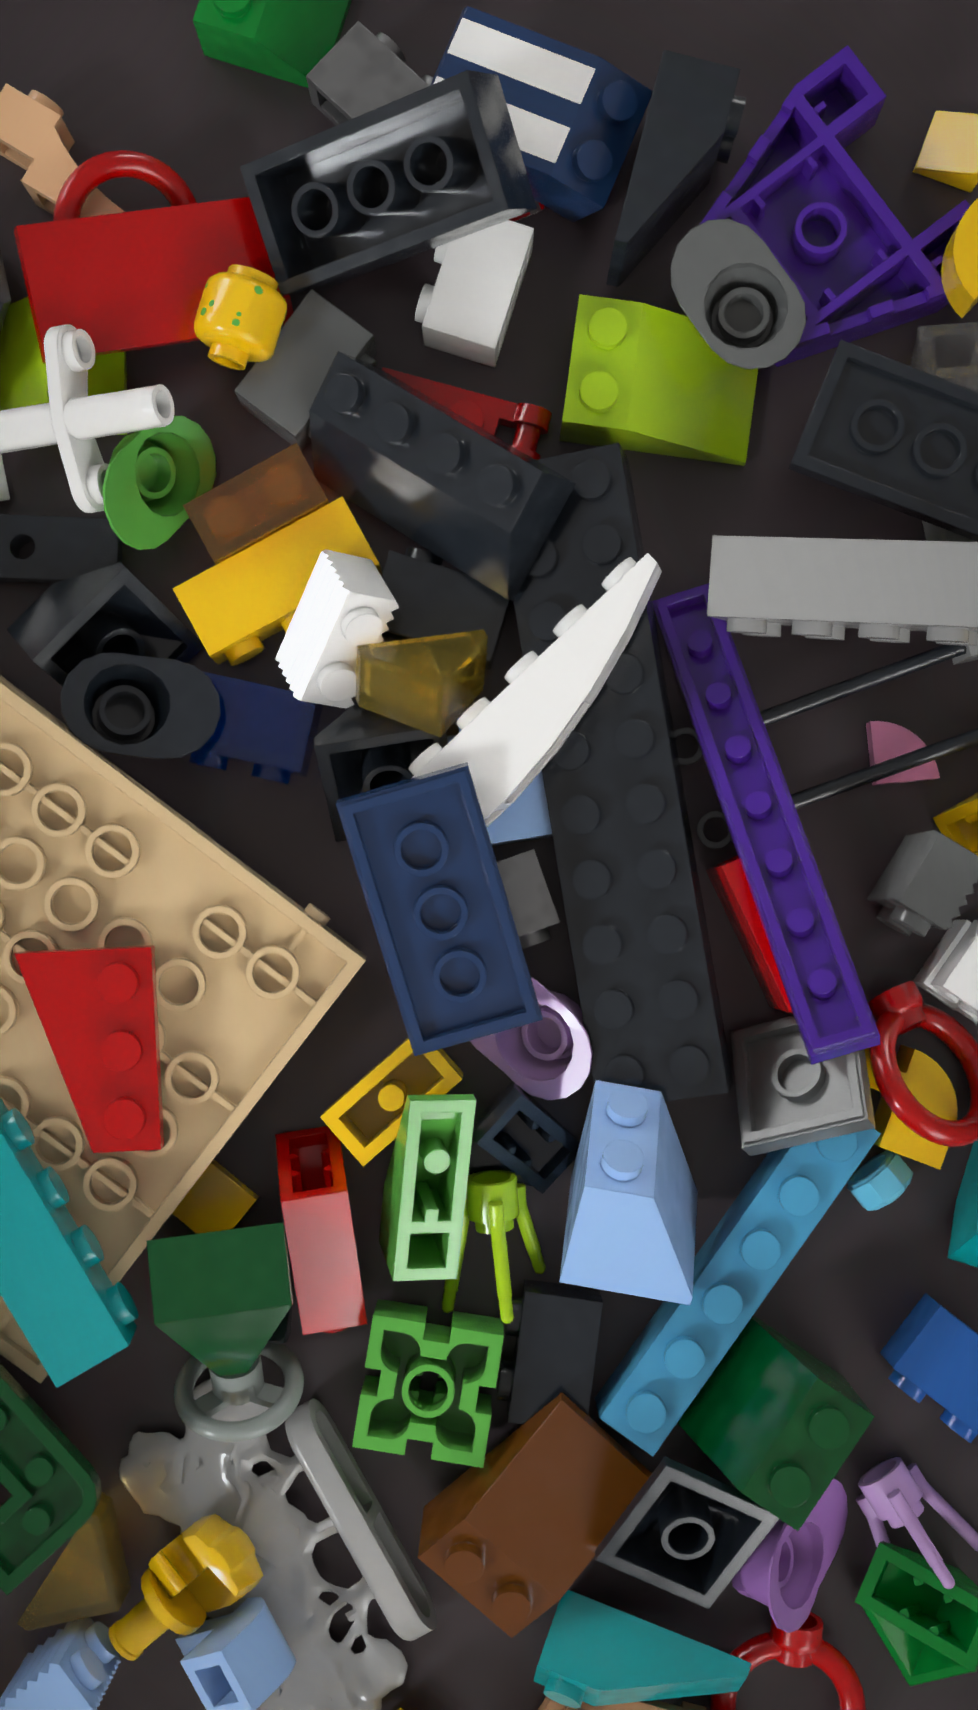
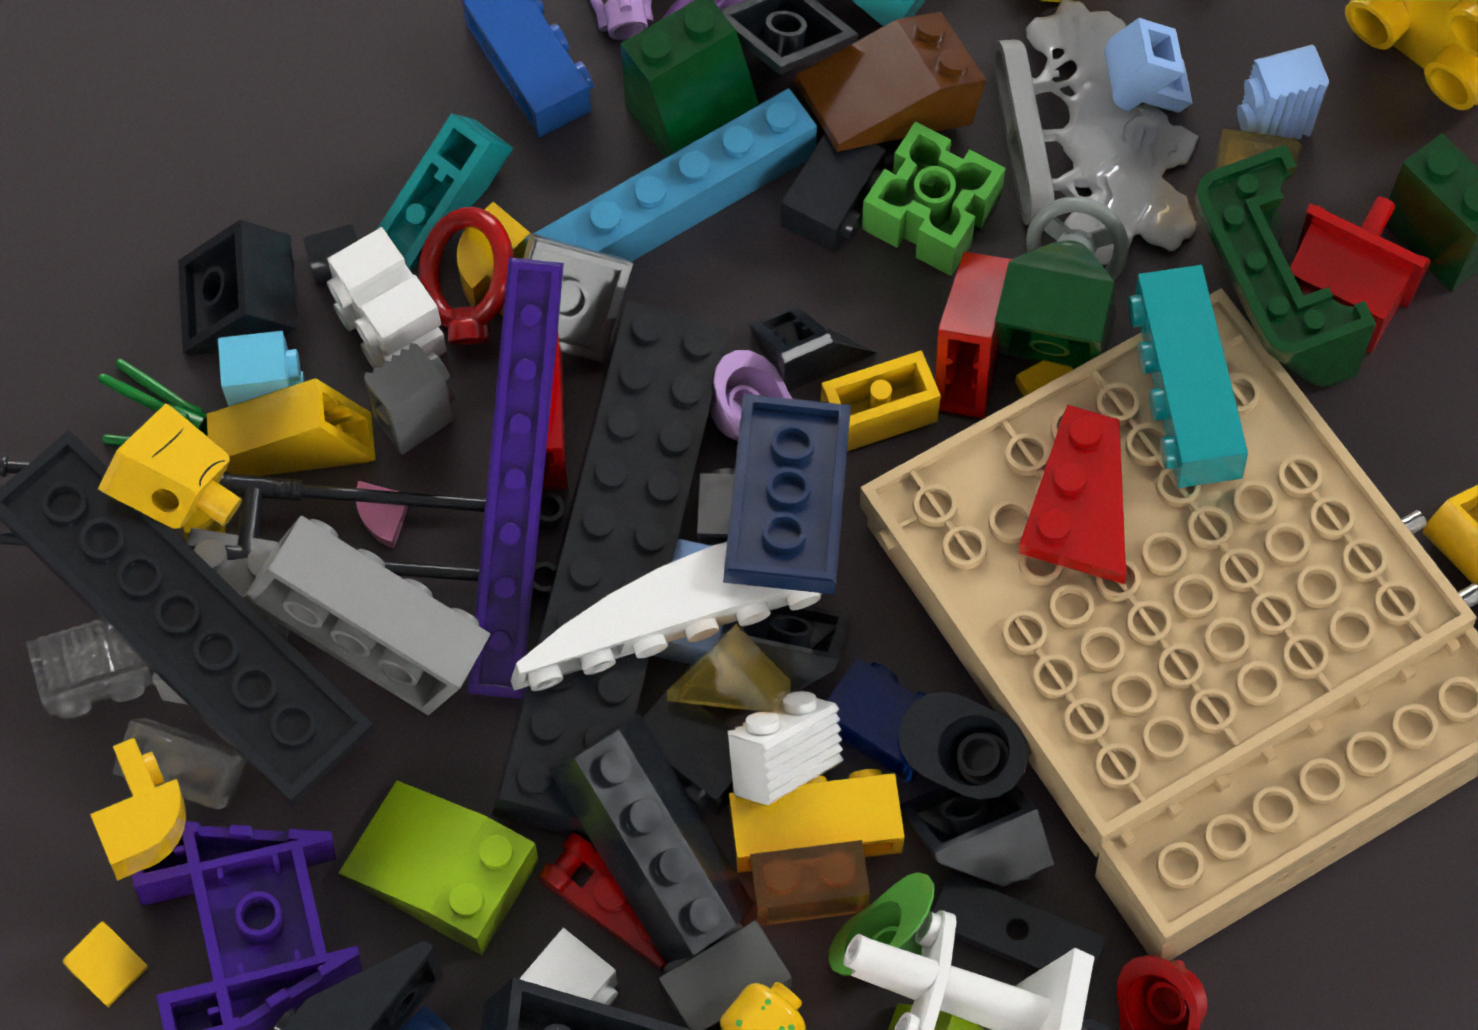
camera: 155 degrees left, 20 degrees down
(192, 1575) = (1159, 137): yellow piece -> none
(427, 1188) = (882, 316): bright green slope -> none
(493, 1203) = (835, 300): lime plant -> none
(630, 1200) = (734, 258): light blue slope -> none
(737, 294) = (351, 879): dark grey piece -> none
(880, 1180) = (537, 212): medium azure tile -> none

